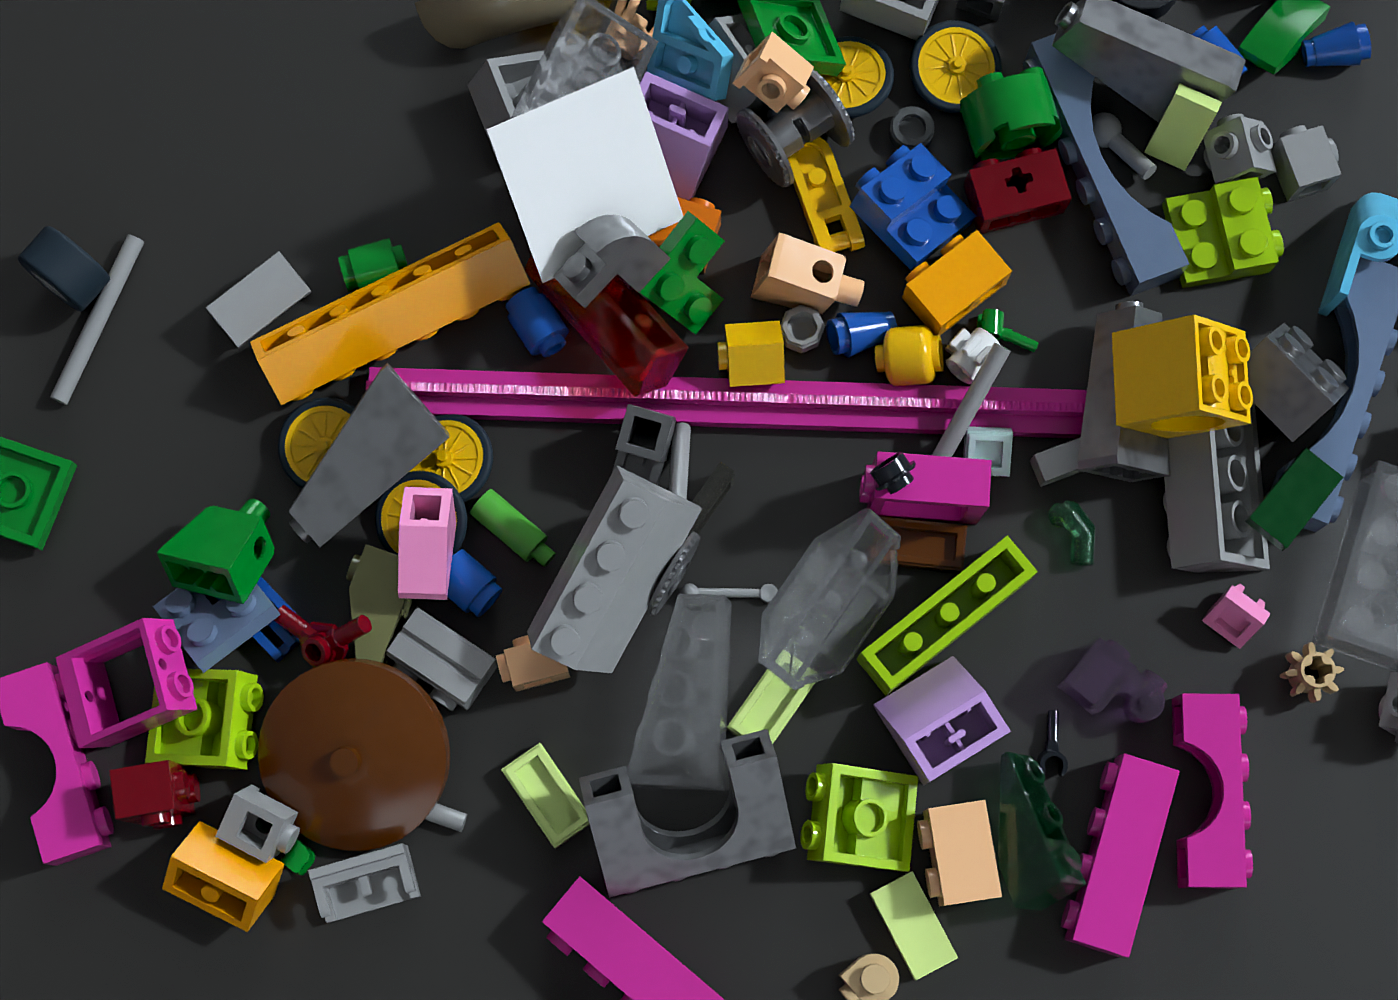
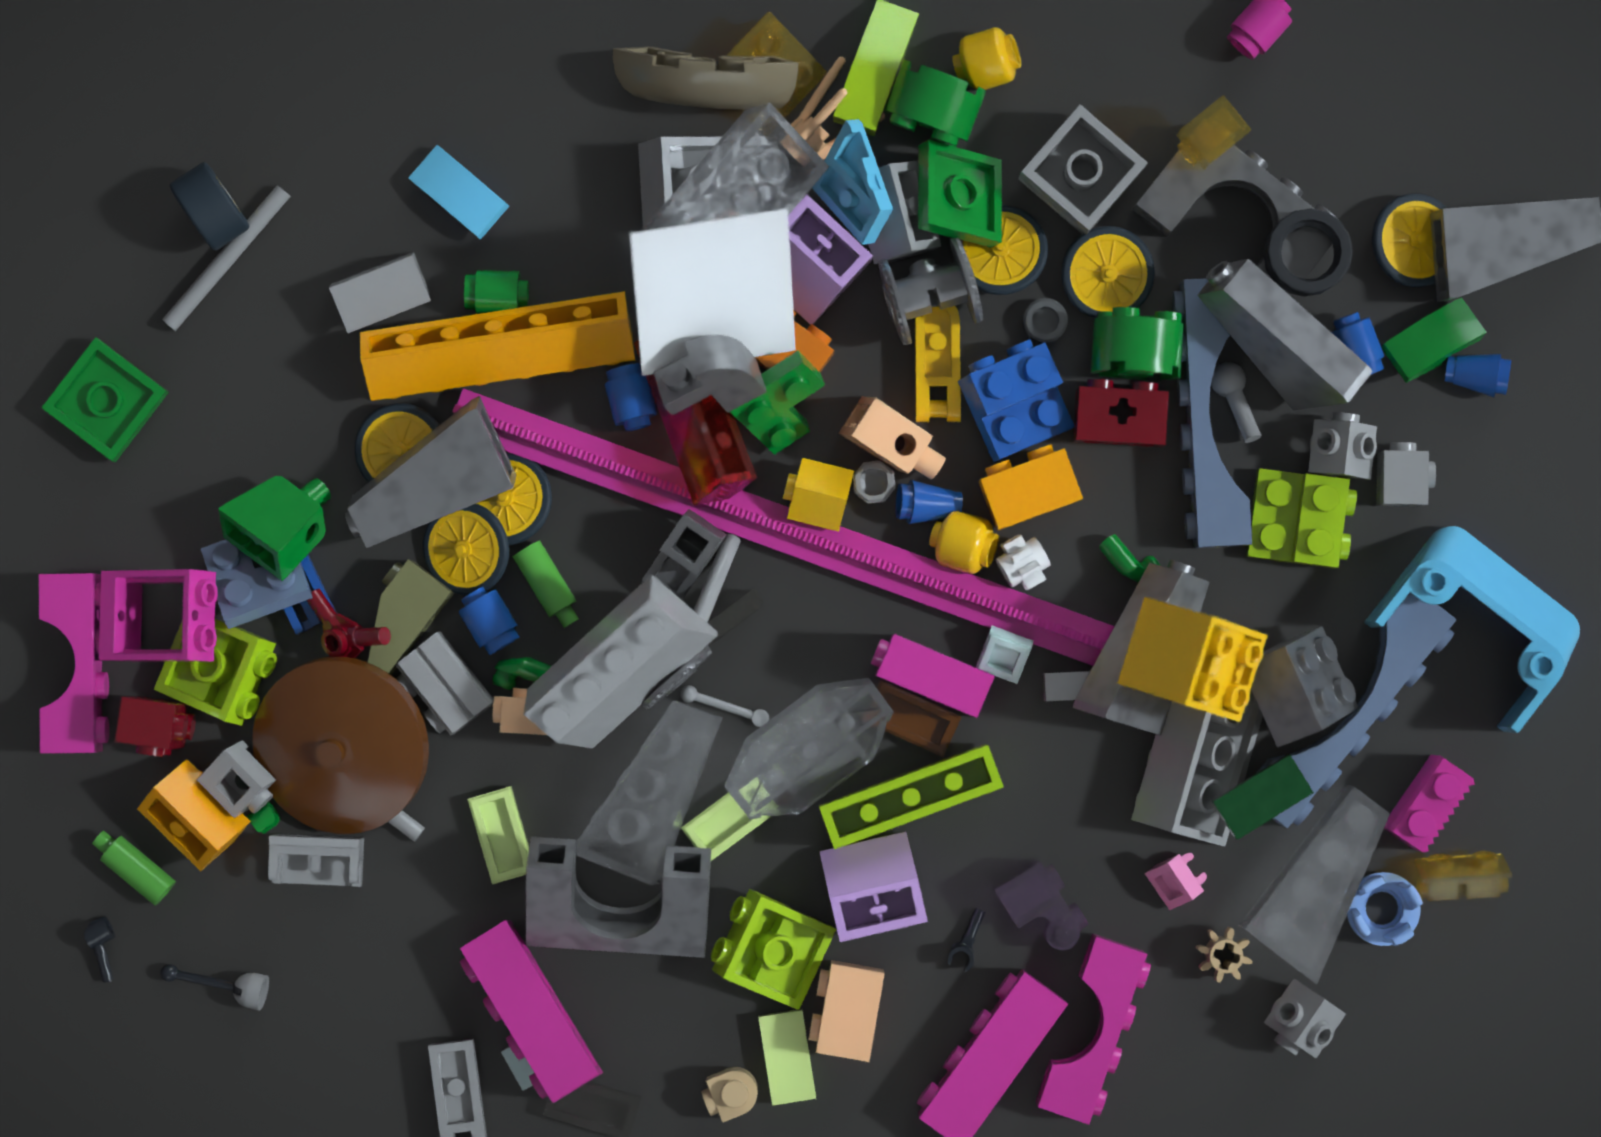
camera: 20 degrees right, 10 degrees up
(178, 954) = (134, 867): none -> bright green cylinder
(307, 184) = (458, 192): none -> medium azure slope
(426, 543) = (461, 582): bright pink slope -> none
(503, 625) = (524, 667): none -> green arm
(775, 74) = (923, 243): light nougat brick -> none
(893, 473) = (899, 661): black plate -> none
(972, 401) = (998, 612): light grey bar -> none
(993, 320) = (1051, 537): green hand -> none
(1032, 844) = (915, 1024): clear green slope -> none
(1069, 324) = (1124, 560): none -> green arm
(1079, 527) = (1063, 751): clear green arm -> none
(1182, 127) = (1296, 409): yellowish green tile -> none

